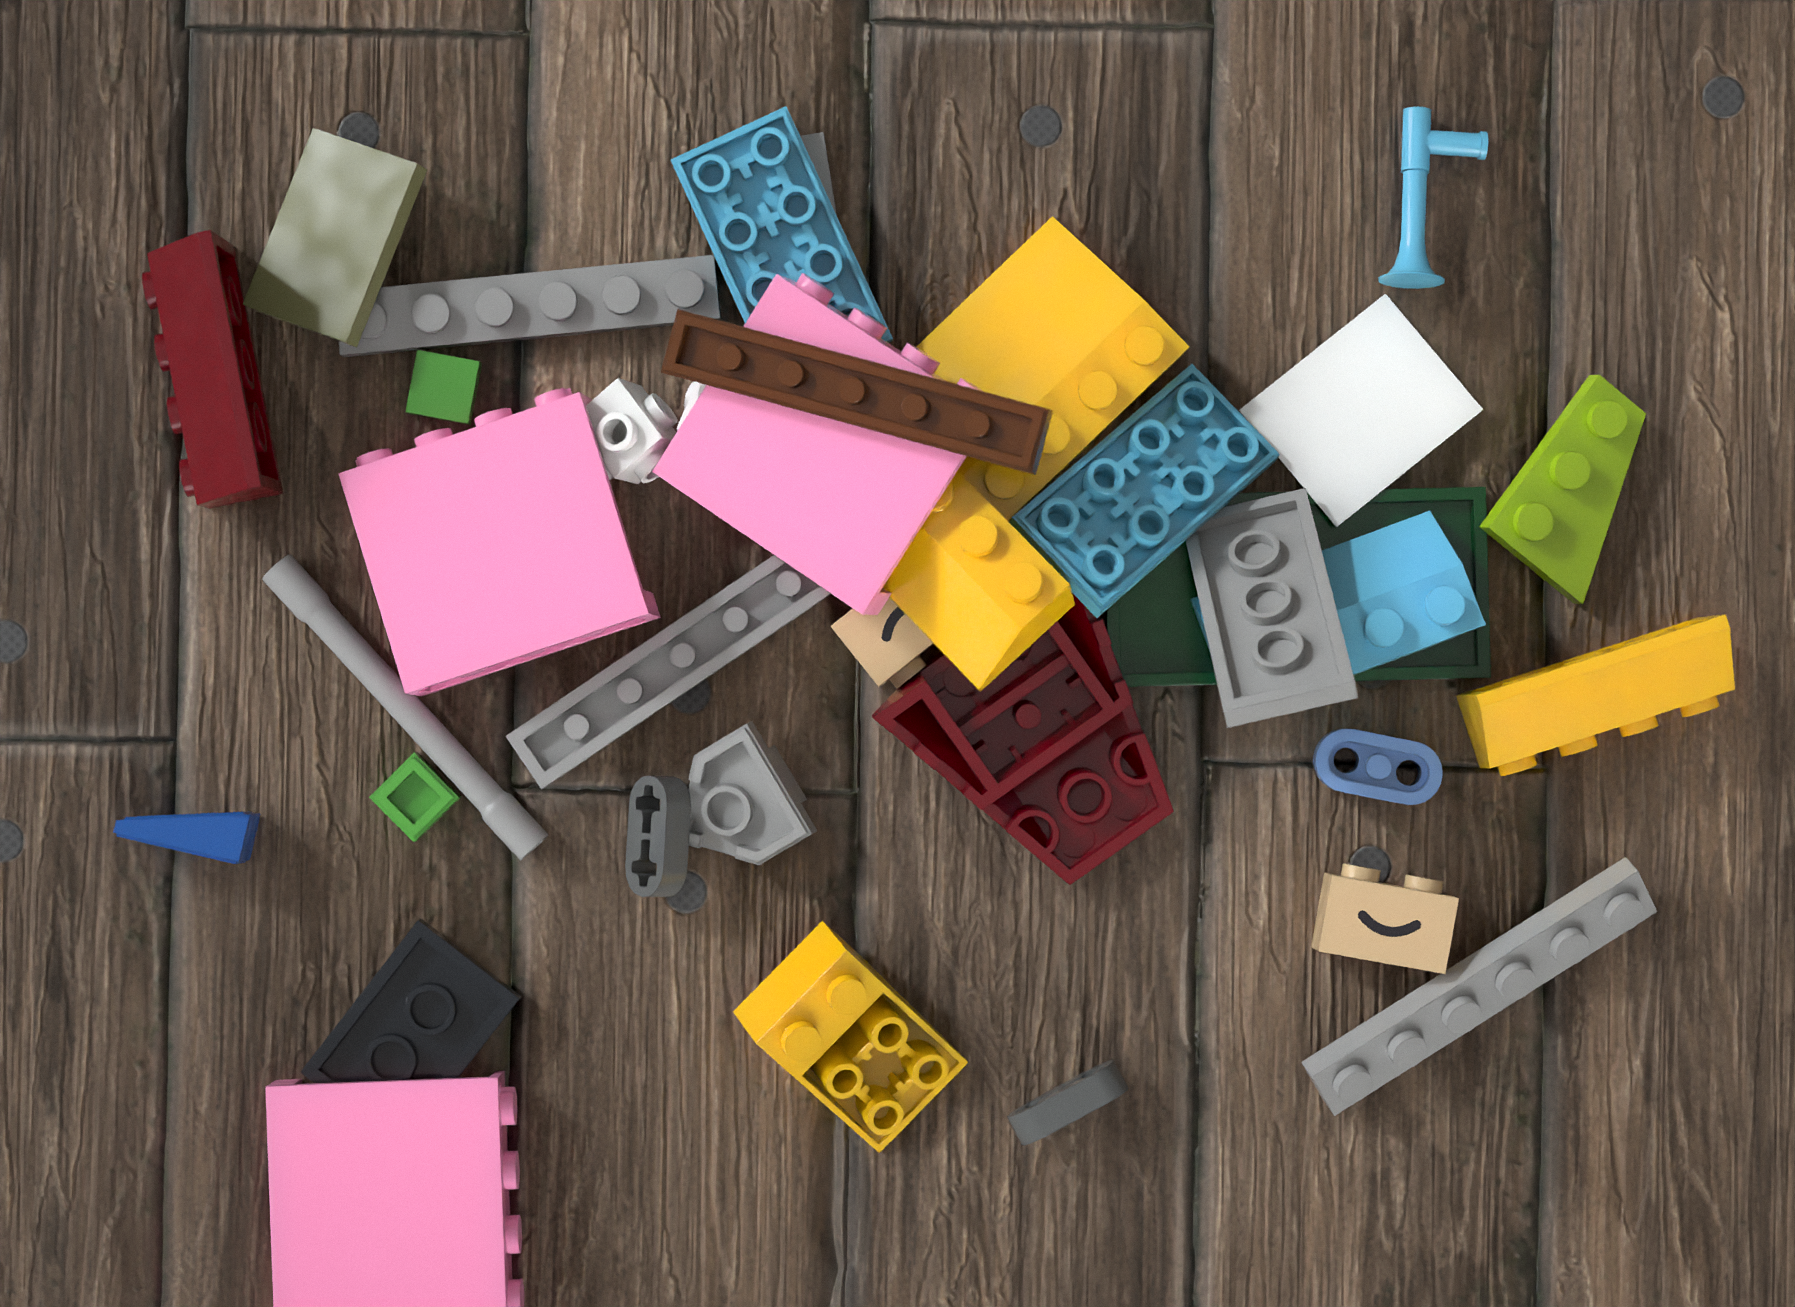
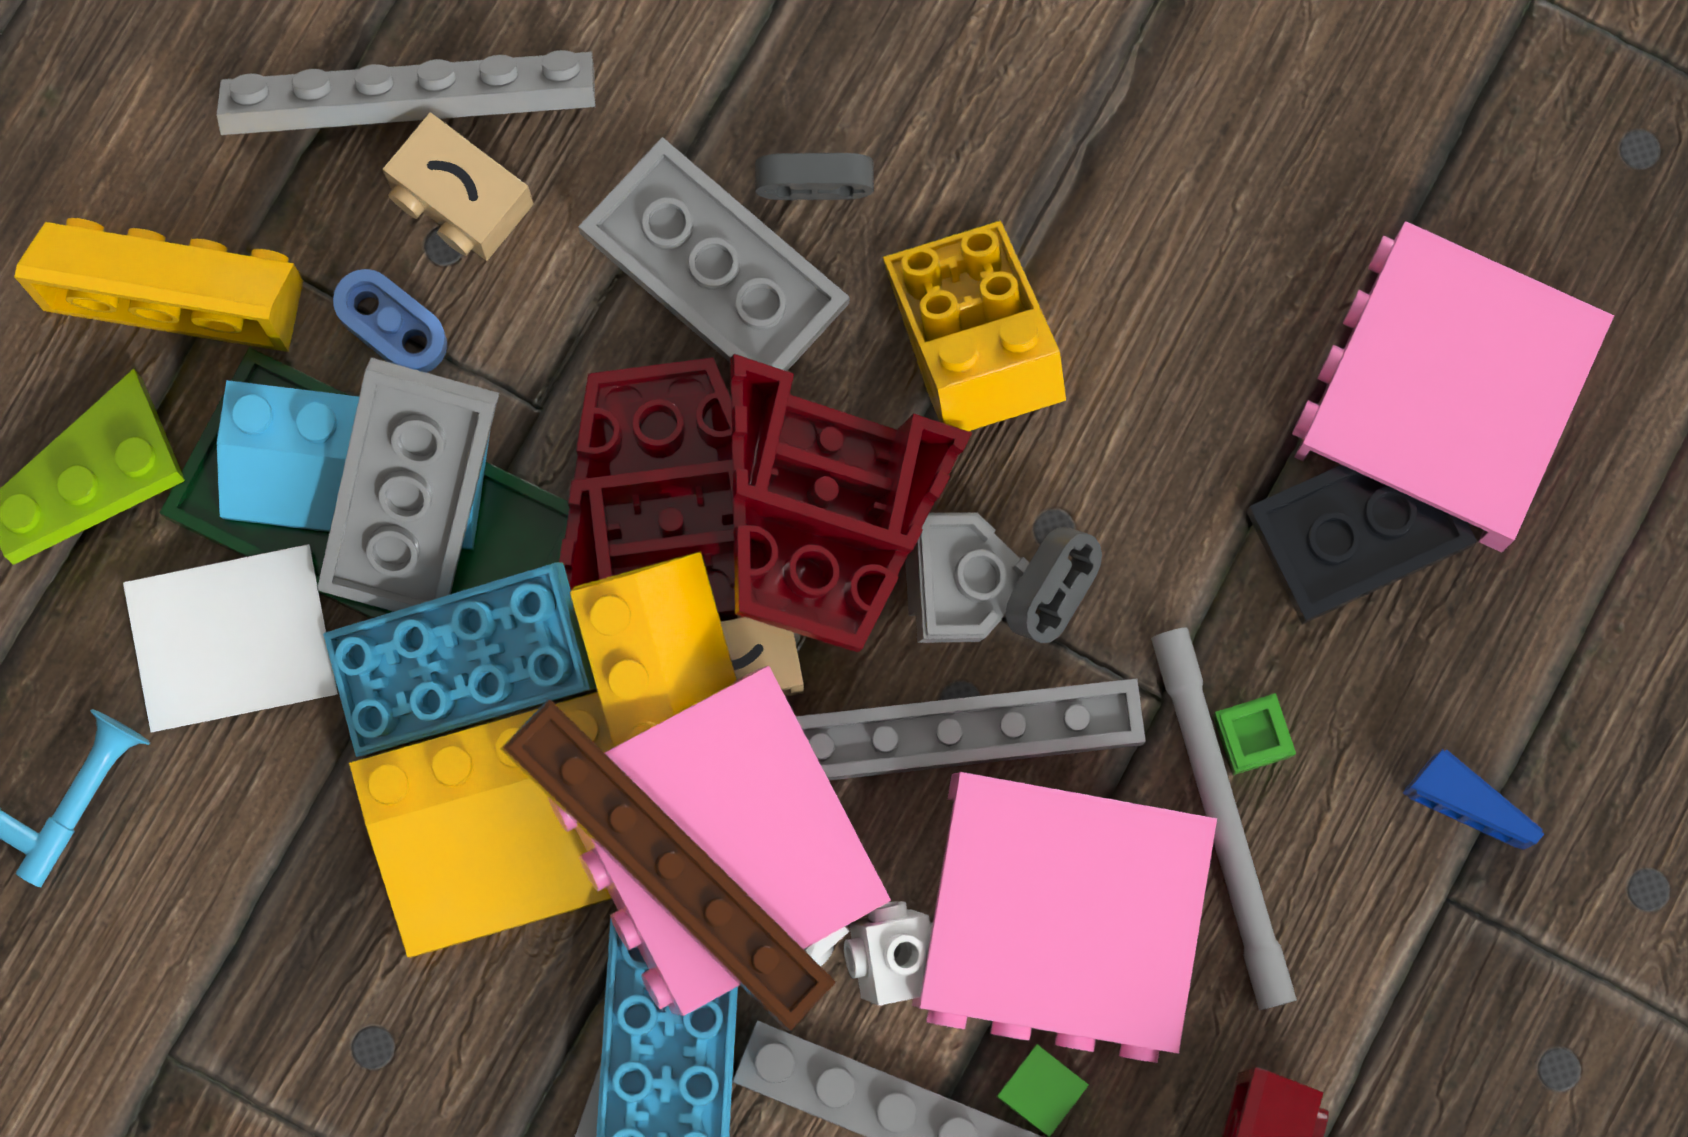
camera: 155 degrees left, 10 degrees down
(891, 793) = (825, 505): none -> dark red wedge
(1115, 972) = (712, 261): none -> light grey plate

